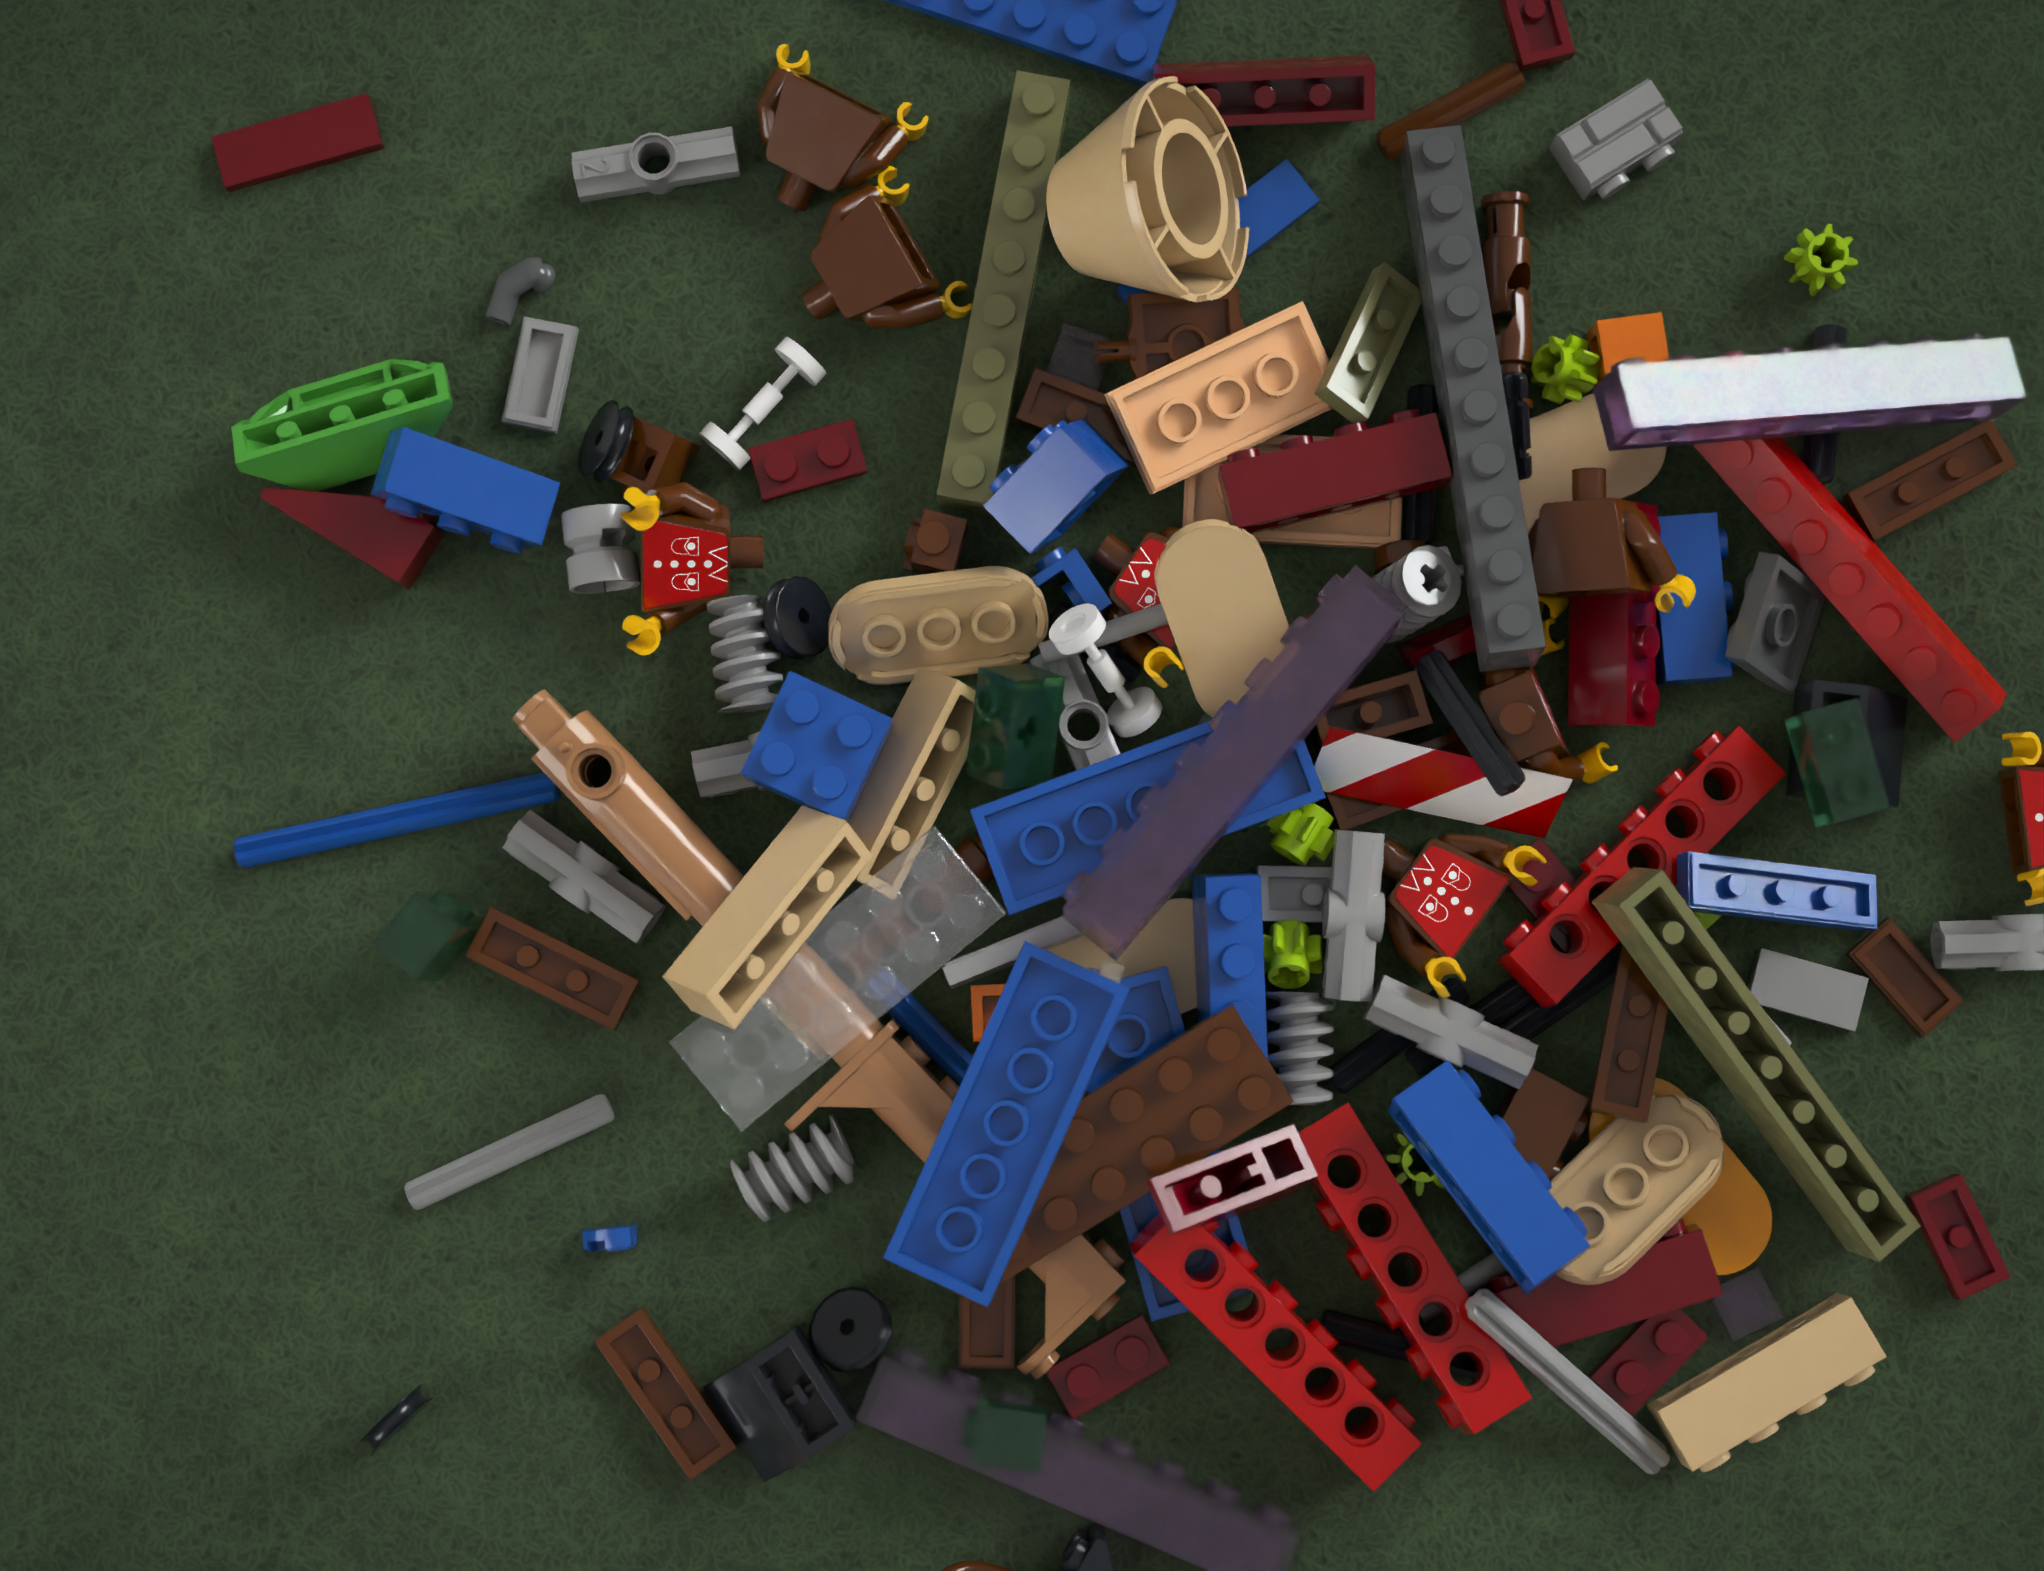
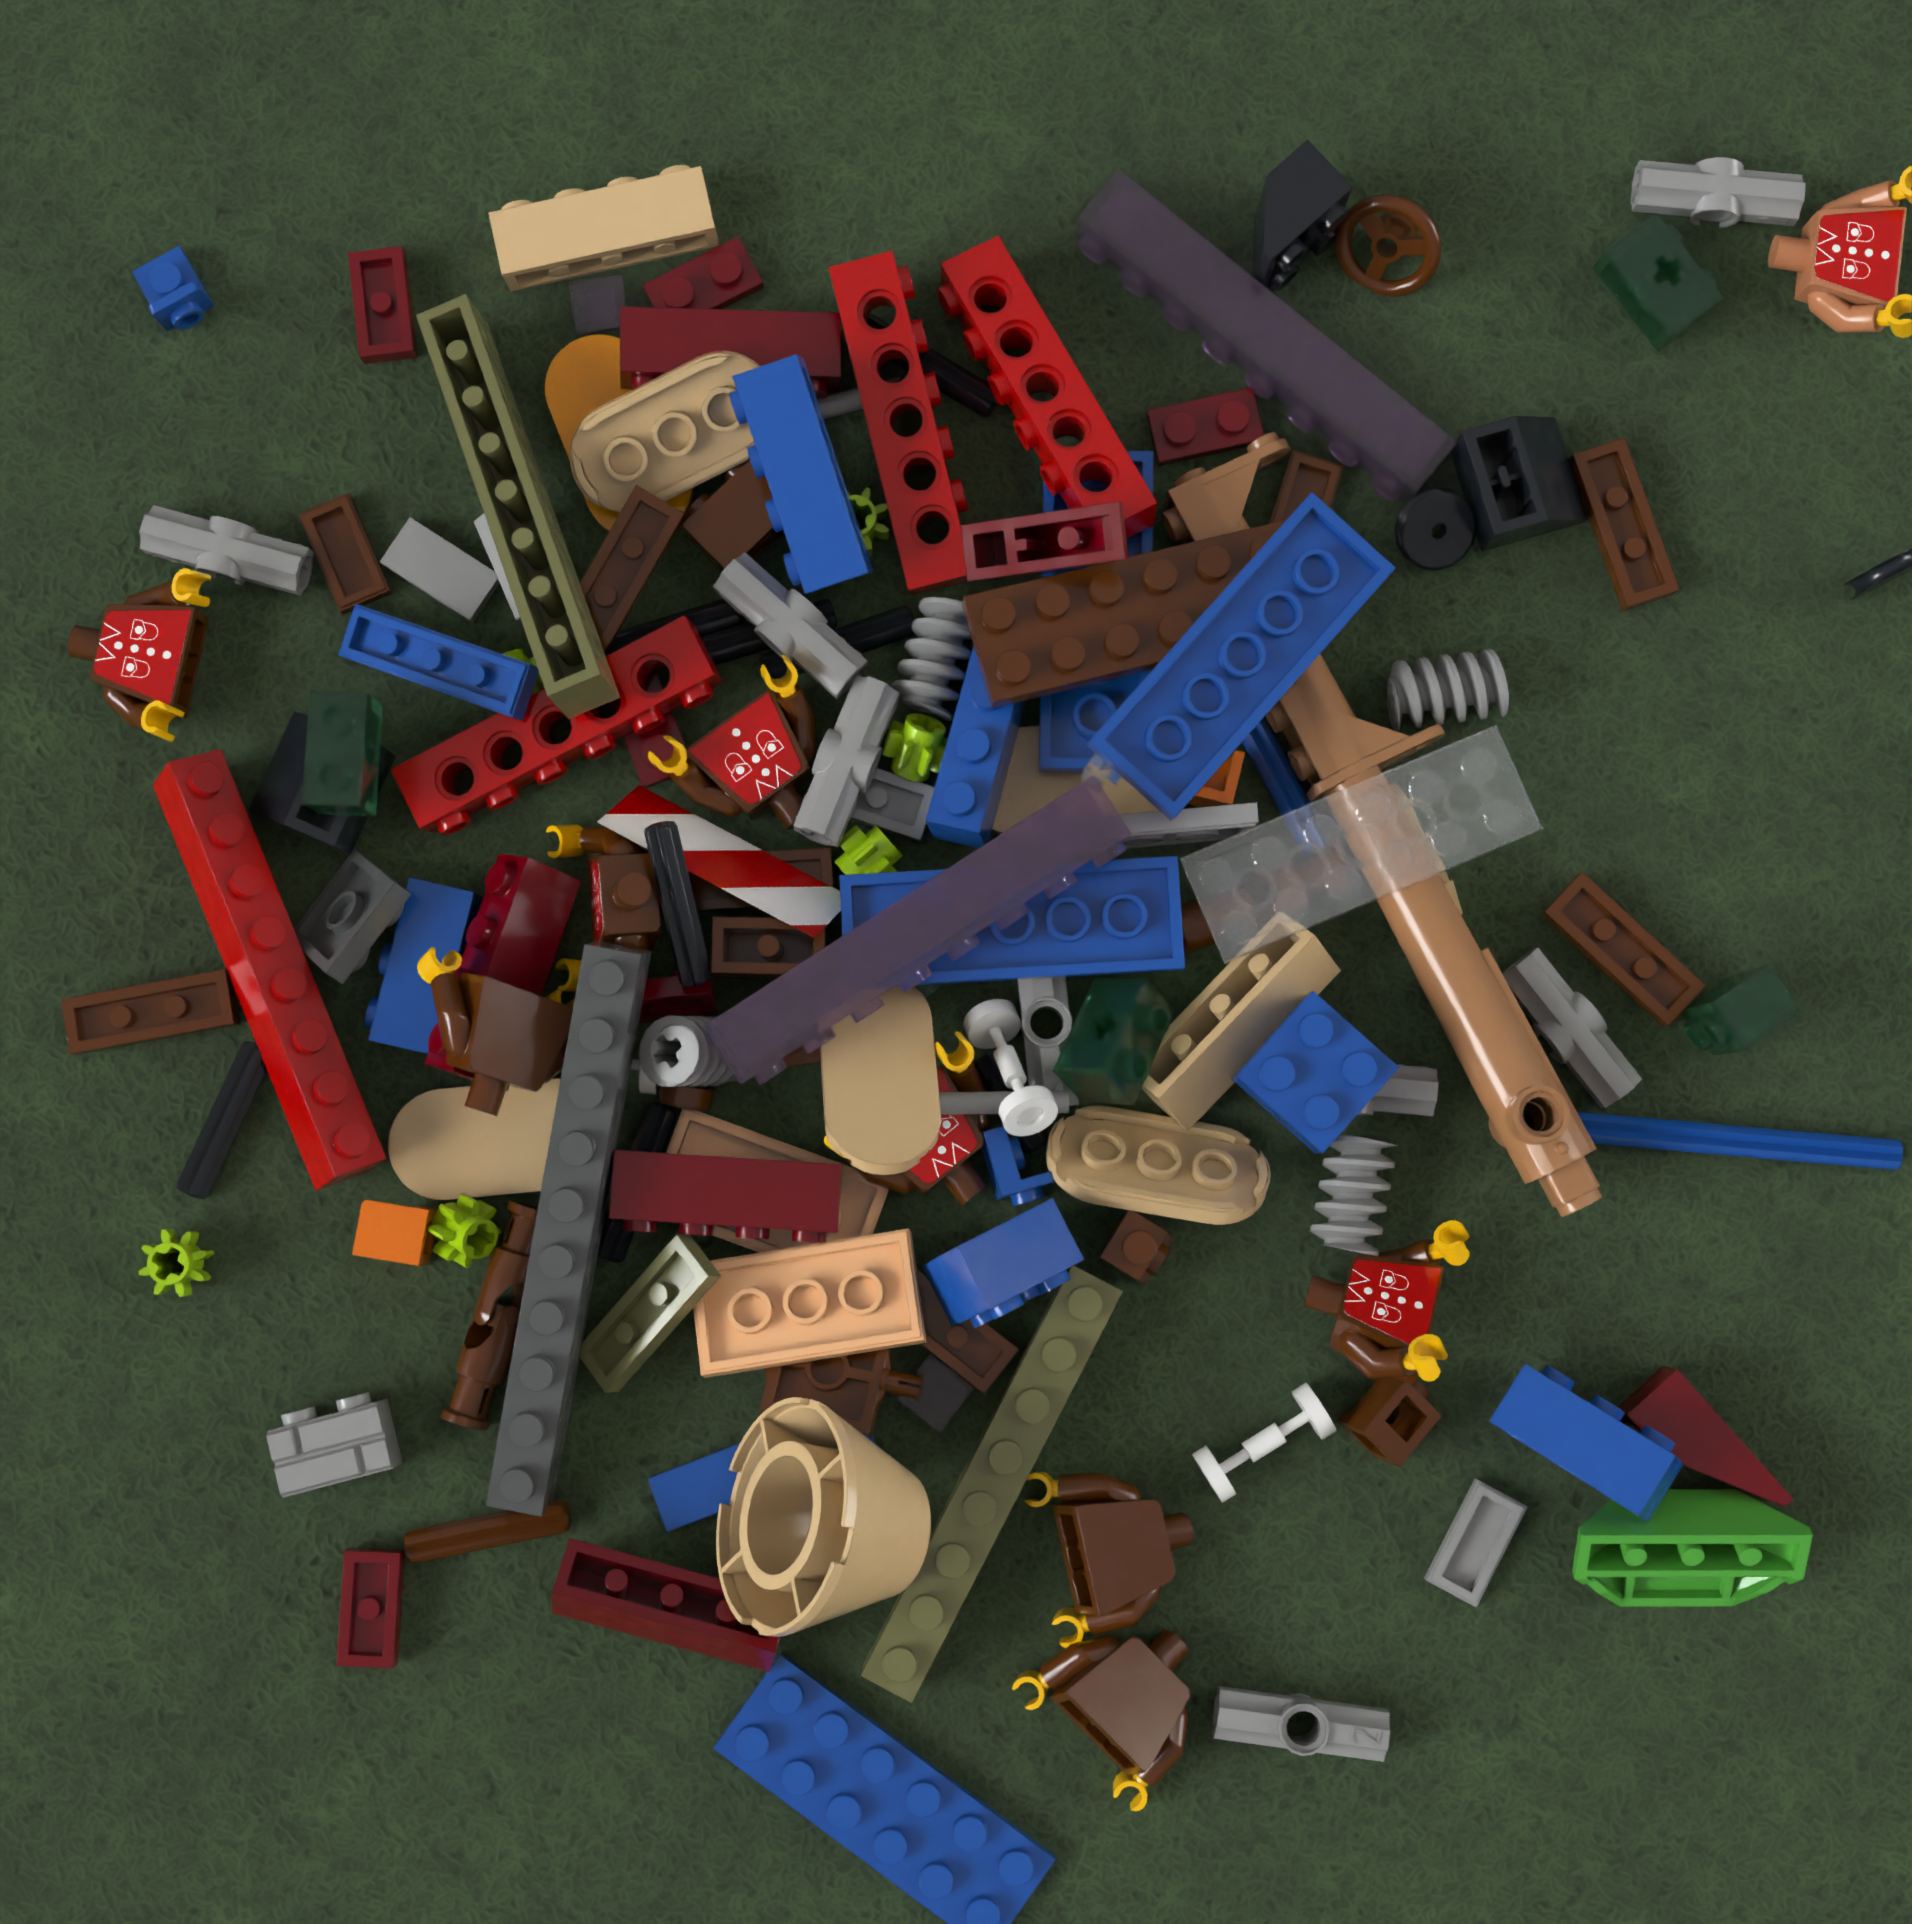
camera: 160 degrees left, 0 degrees up
(297, 142) = (1656, 1863): dark red tile -> none
(509, 1152) = (1710, 791): light grey axle -> none
(513, 283) = (1475, 1645): dark grey arm -> none
(599, 549) = (1483, 1330): light grey wheel -> none
(606, 441) = (1431, 1451): black piece -> none
(610, 1238) = (1633, 679): blue tile -> none
(768, 916) = (1412, 919): tan brick -> none
(797, 617) = (1309, 1210): black piece -> none
(808, 460) = (1234, 1372): dark red plate -> none
(1006, 1435) = (1324, 380): clear green brick -> none
(1515, 390) = (524, 1215): black axle -> none
(1566, 1381) = (789, 278): light grey axle -> none
(1806, 391) = (242, 1125): brick -> none

